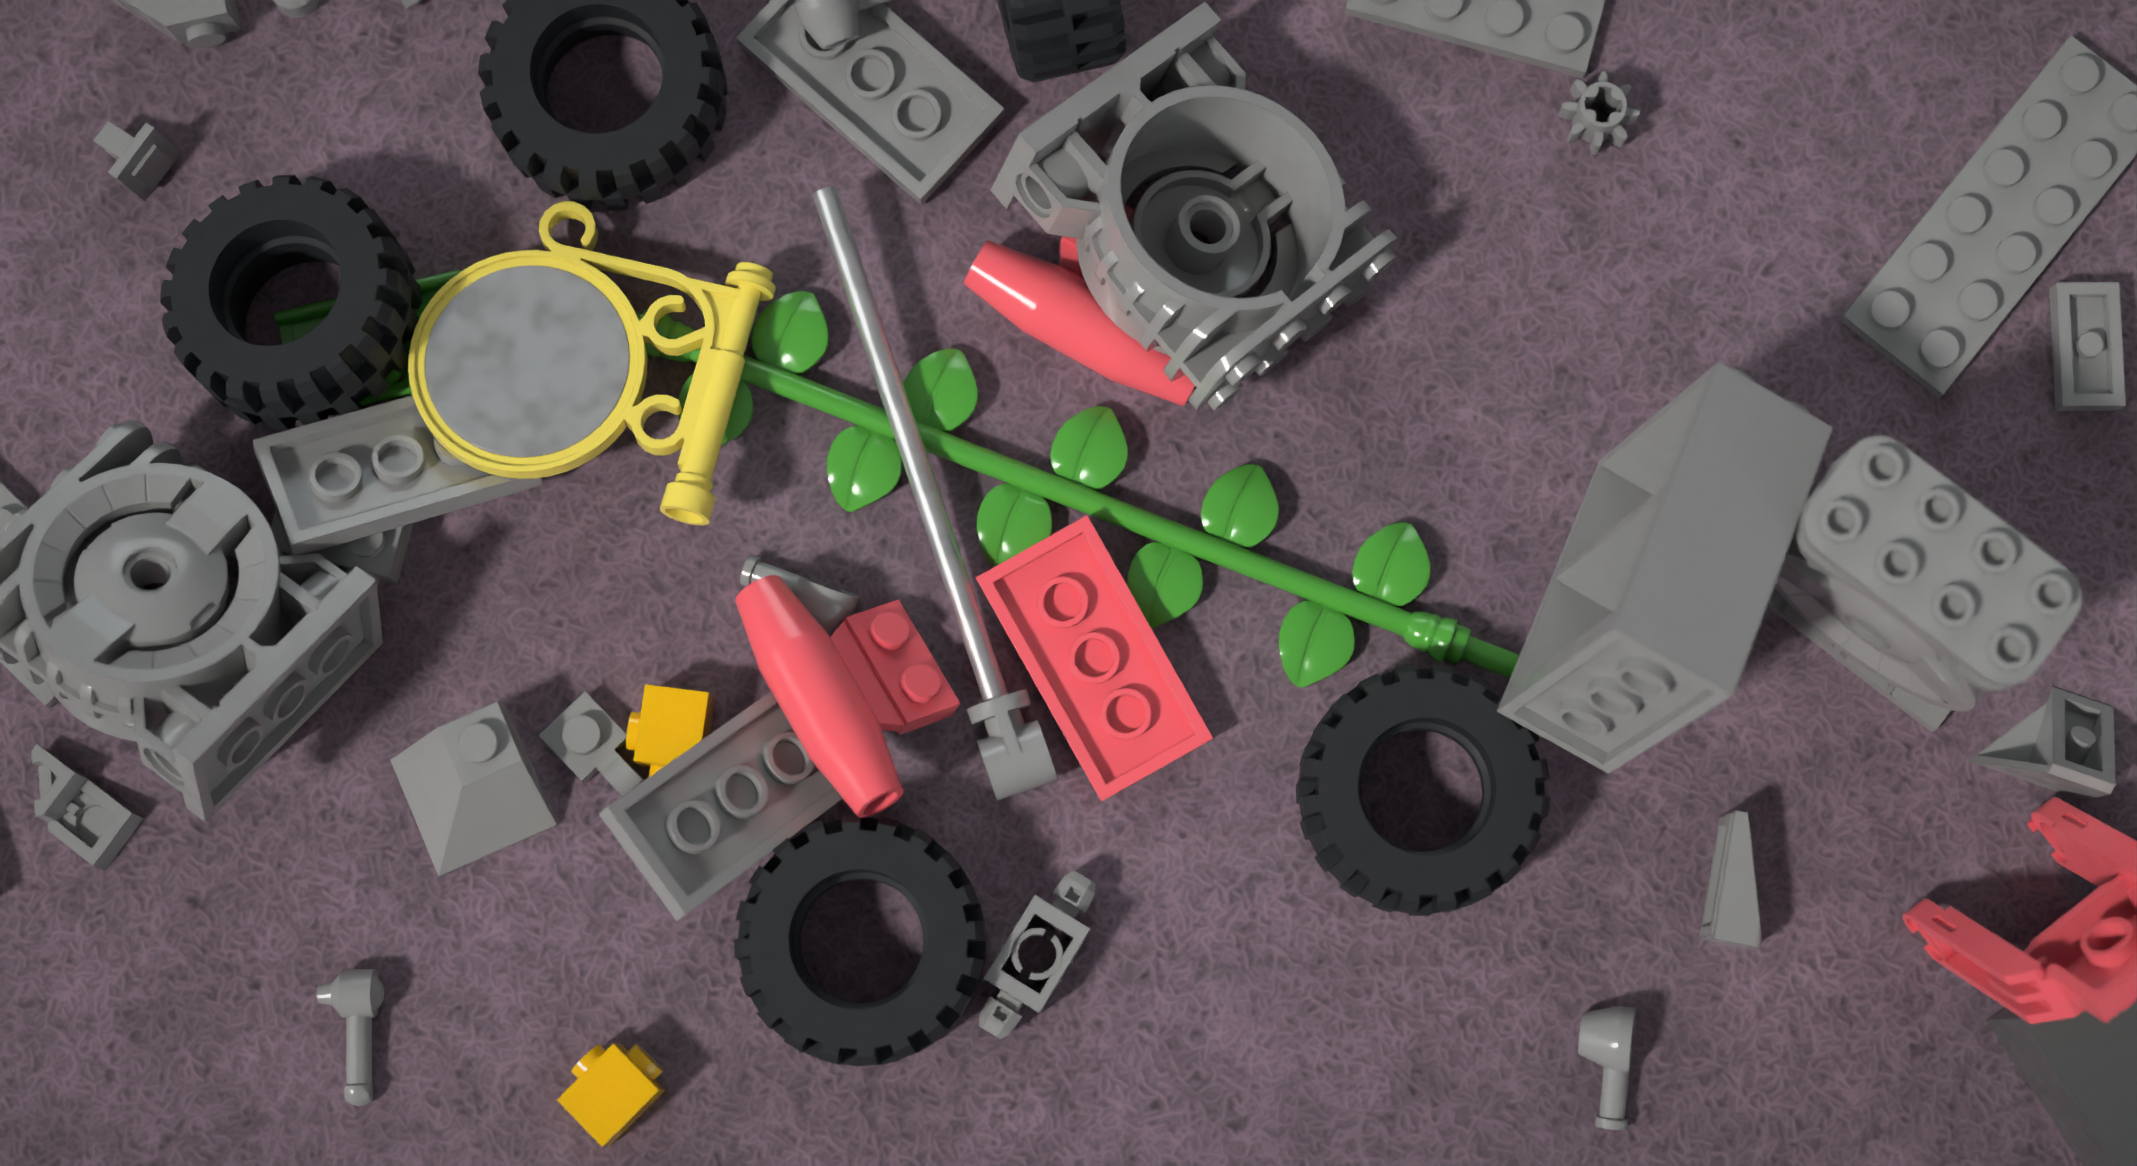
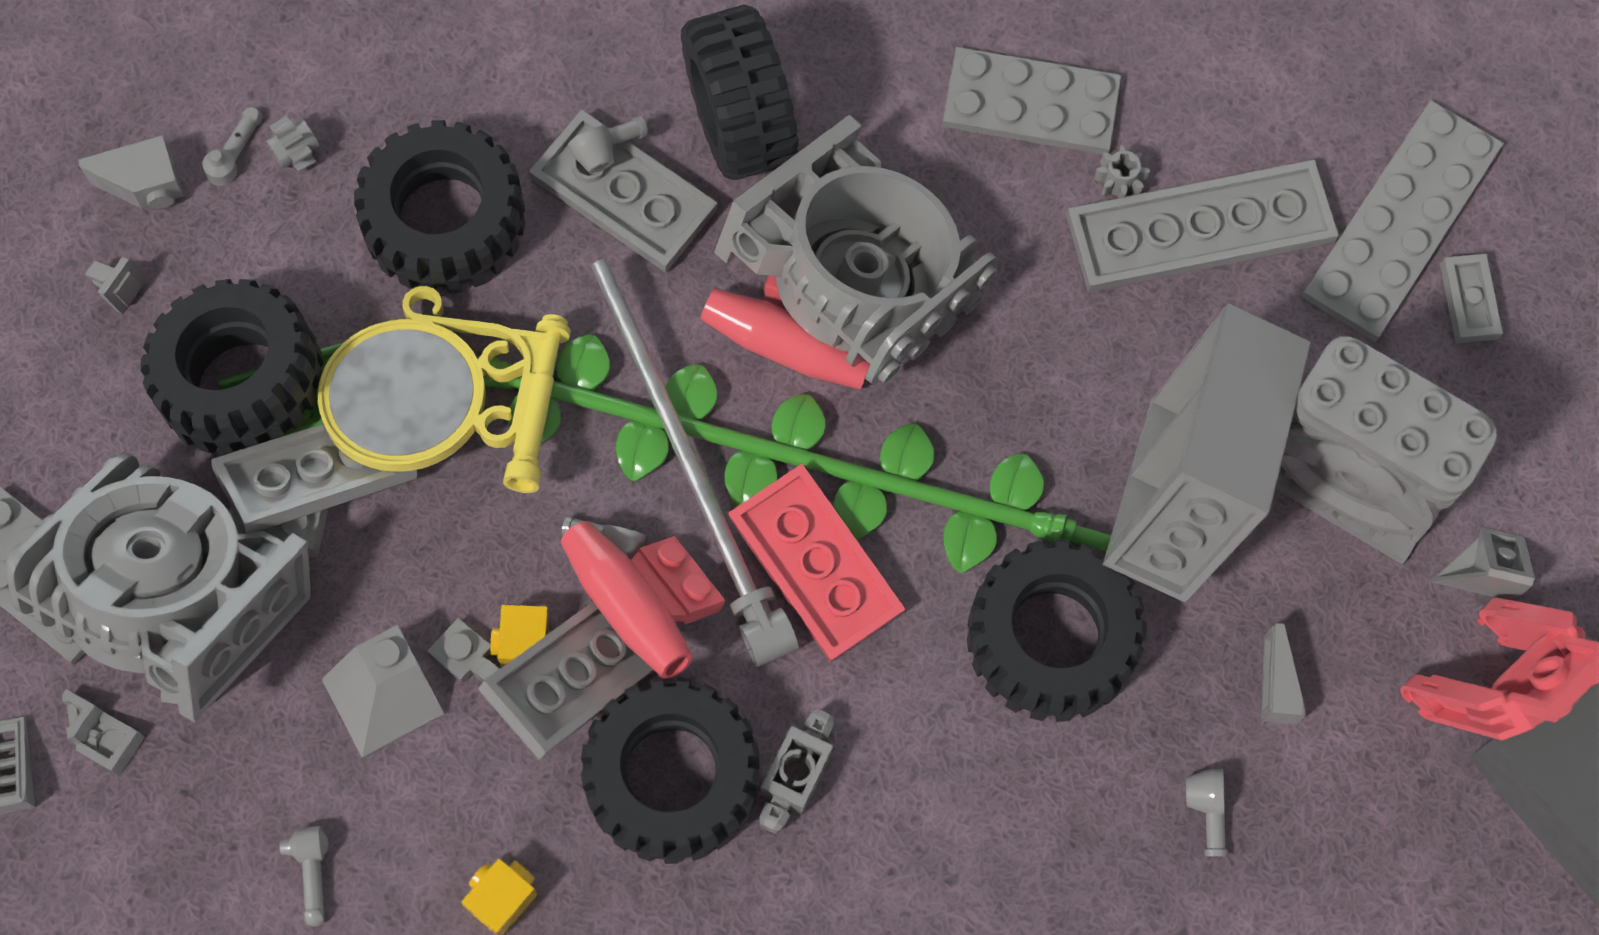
camera: 10 degrees left, 10 degrees down
(1707, 201) = (1201, 225): none -> light grey plate

